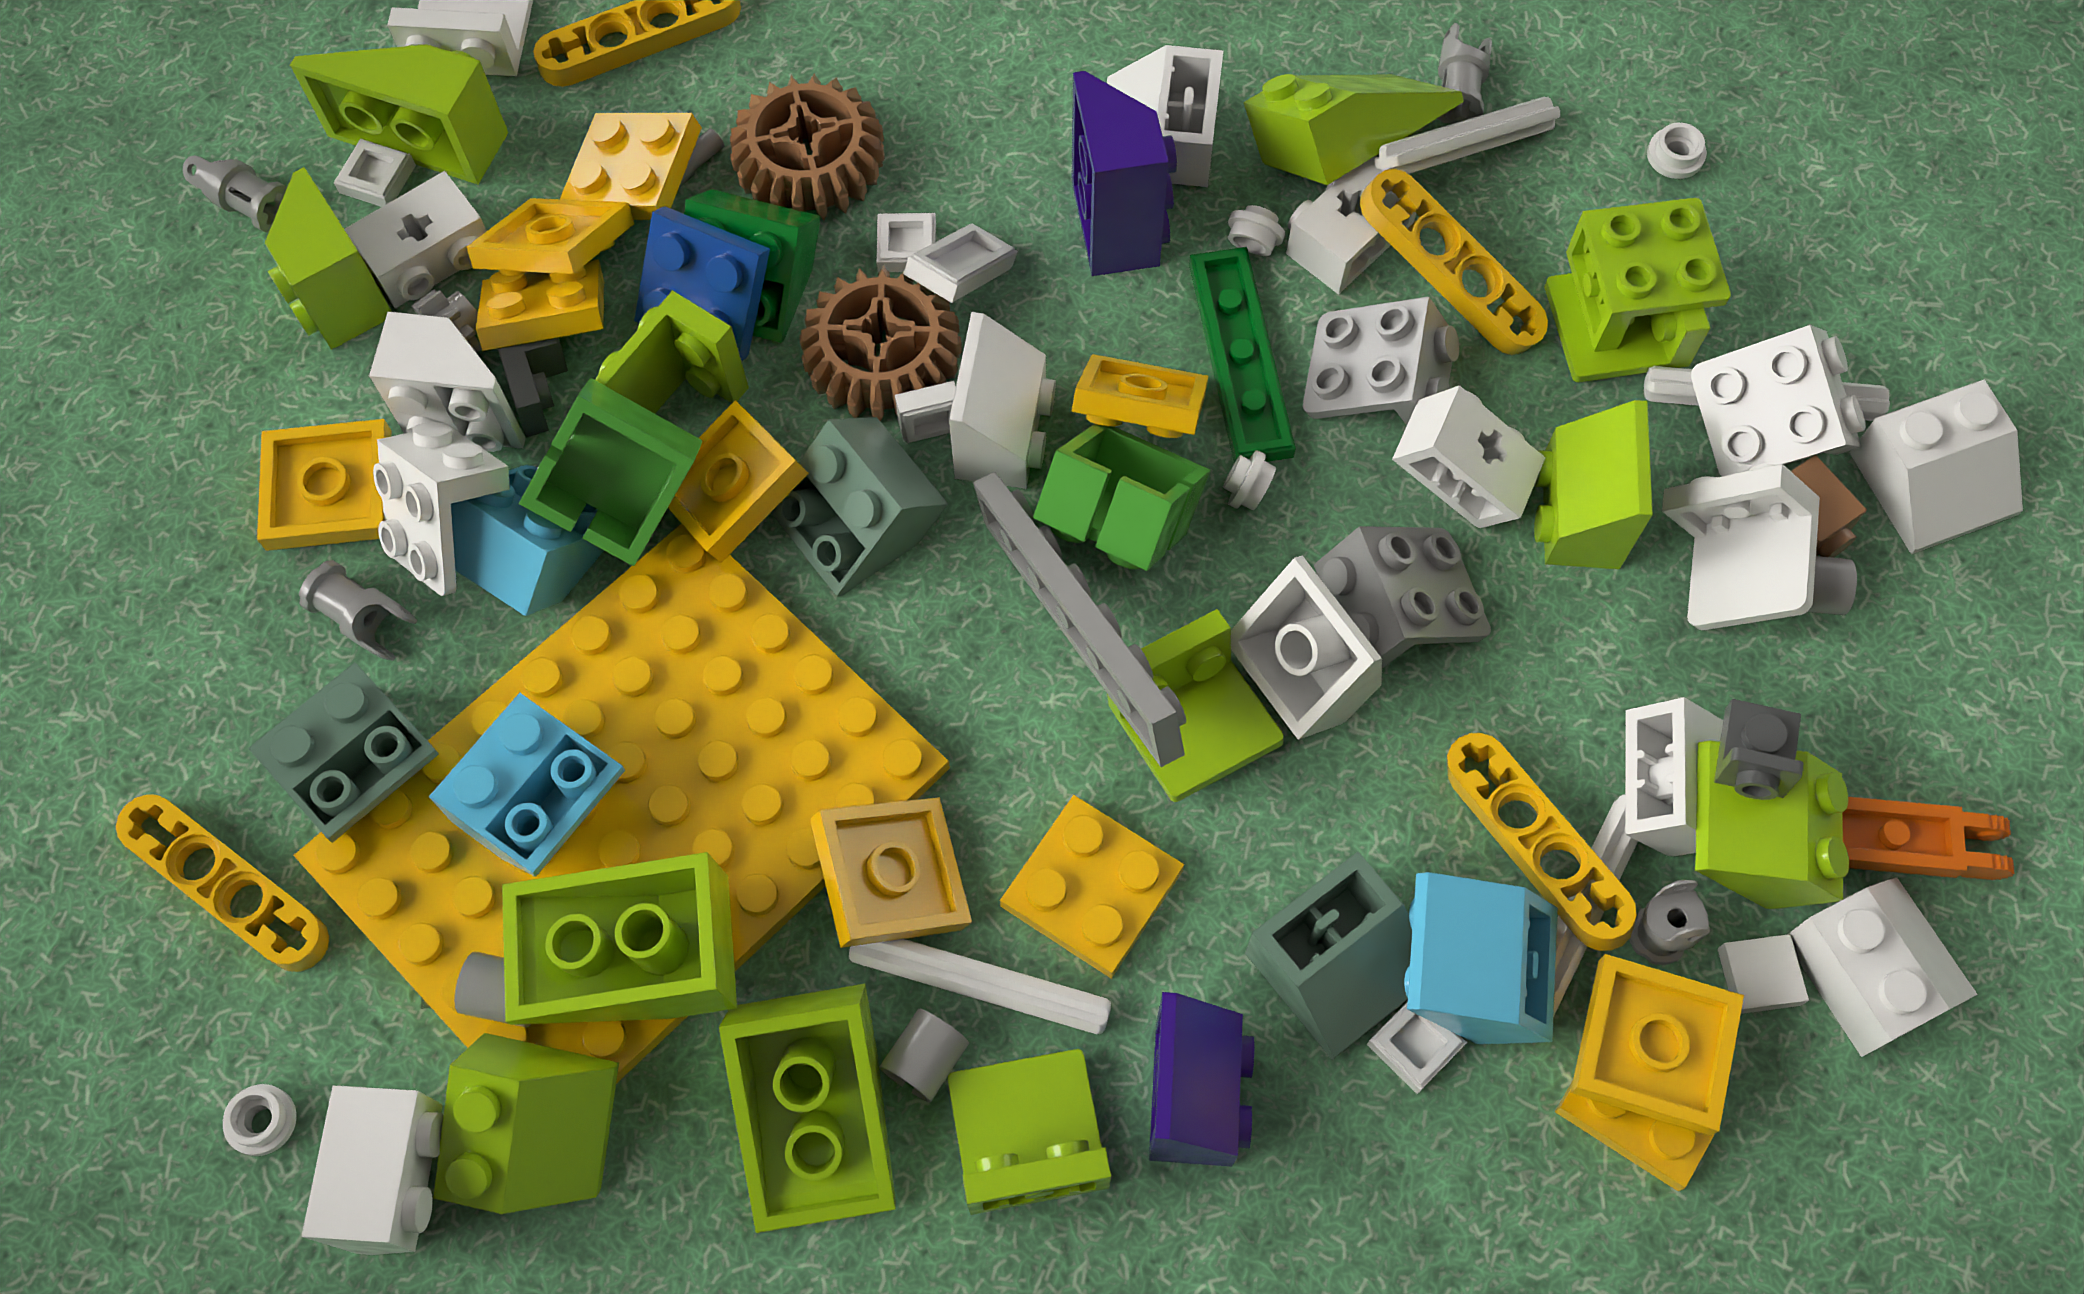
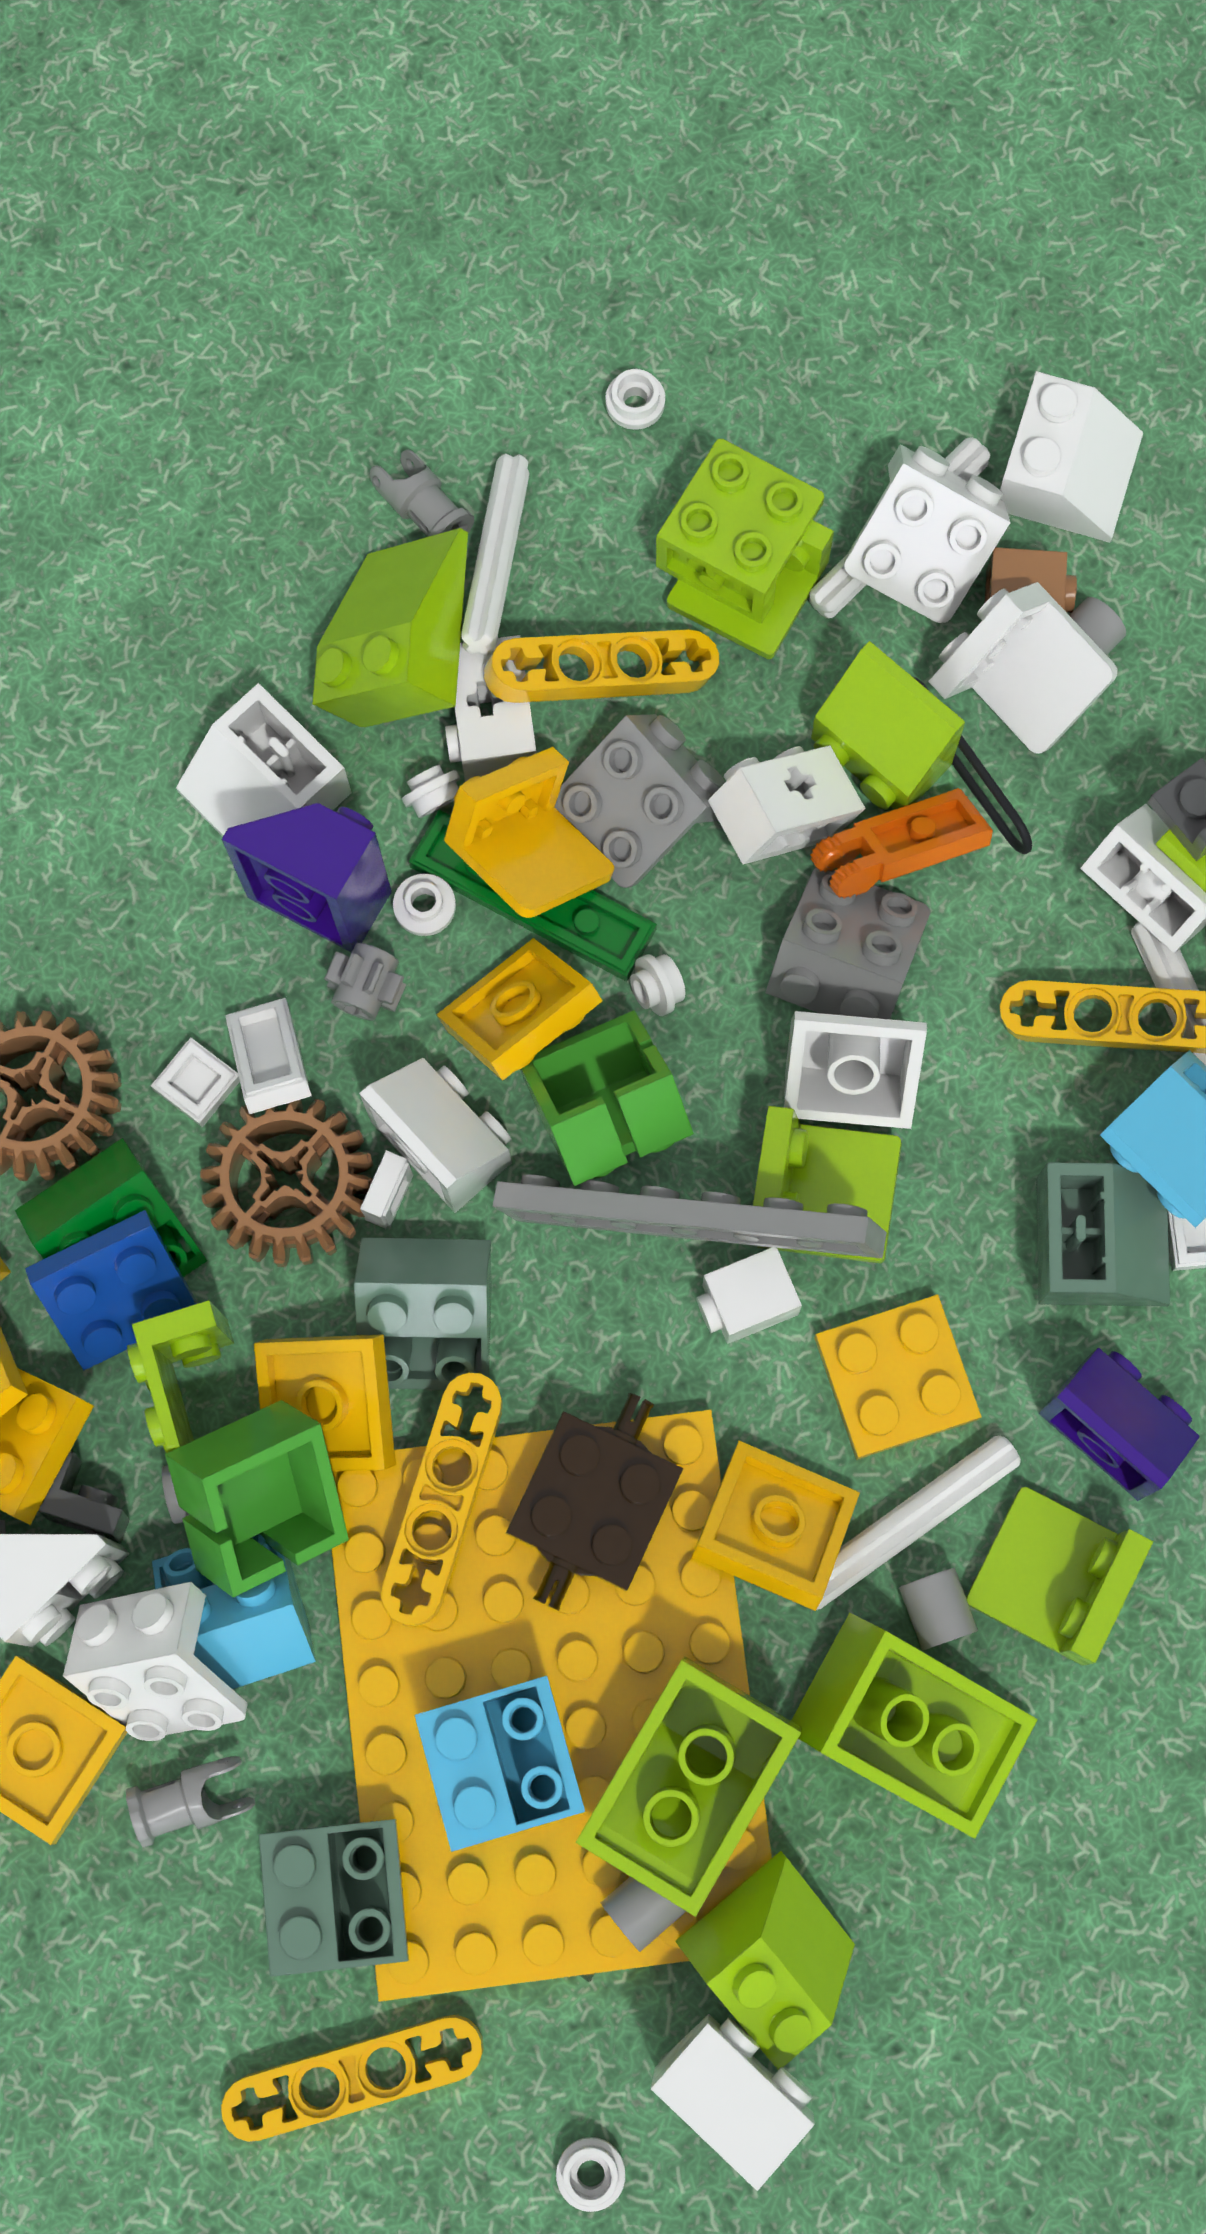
camera: 50 degrees left, 10 degrees up
(721, 620) = (433, 1496): none -> yellow beam
(800, 718) = (594, 1501): none -> dark brown plate
(1061, 720) = (748, 1296): none -> white brick
(1072, 286) = (365, 981): none -> light grey gear
(1167, 301) = (430, 921): none -> white plate
(1272, 298) = (520, 841): none -> yellow bracket
(1519, 566) = (902, 842): none -> orange hinge
(1623, 595) = (1023, 848): none -> black piece

